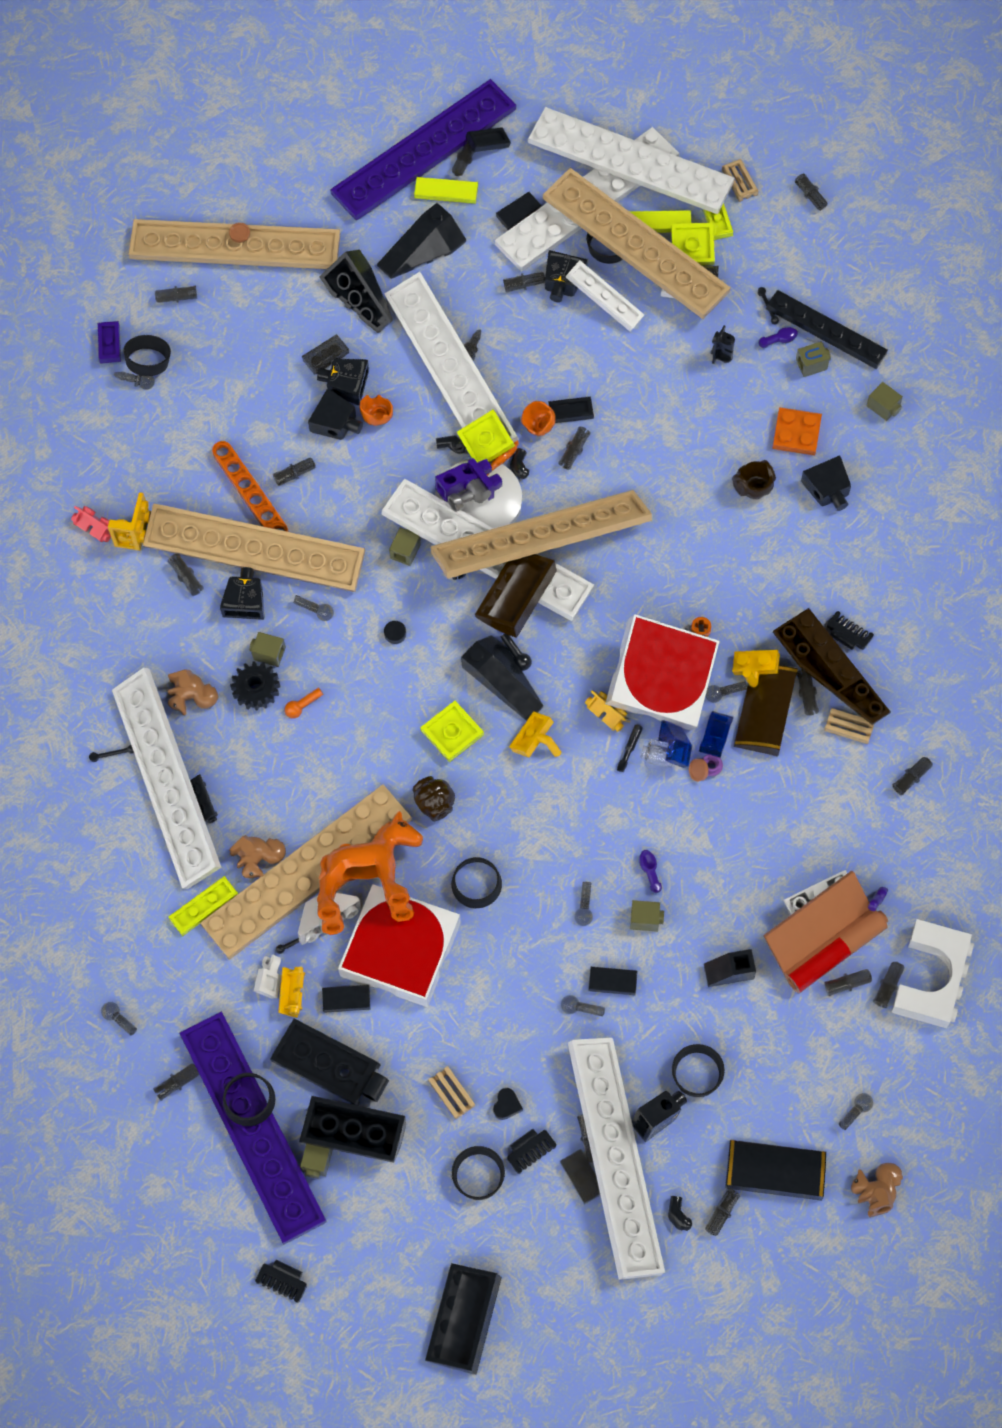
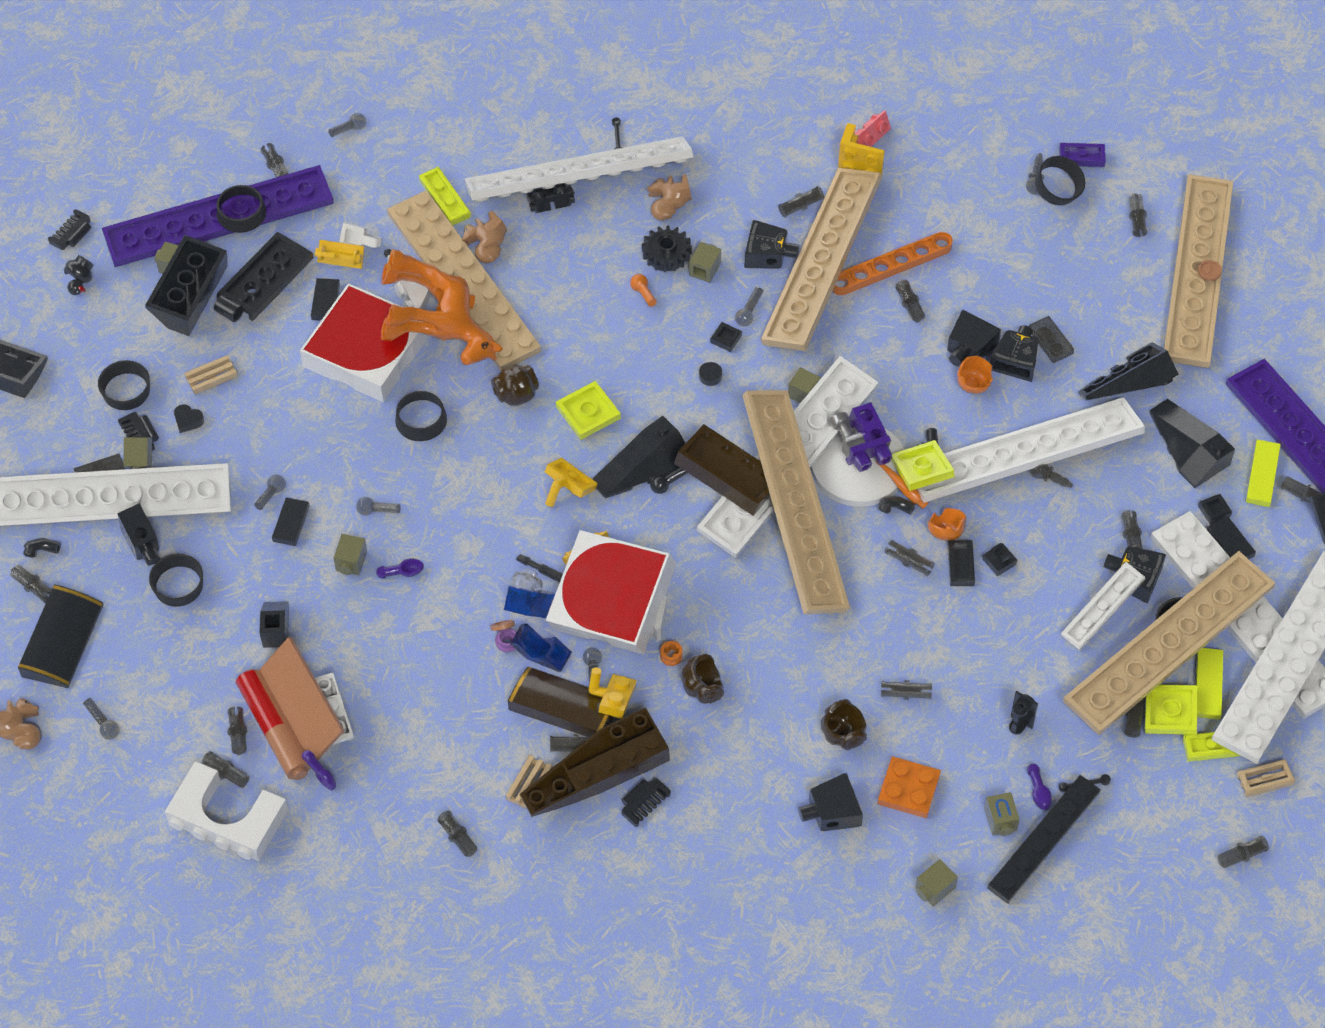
camera: 95 degrees right, 10 degrees down
(341, 1252) = (81, 271): none -> black animal
(350, 624) = (726, 336): none -> black tile
(487, 224) = (1214, 508): none -> black tile
(561, 1138) = (137, 452): none -> olive brick
(563, 380) = (999, 559): none -> black tile
(707, 439) = (906, 690): none -> clear smoke pin
(730, 595) = (702, 679): none -> dark brown hair

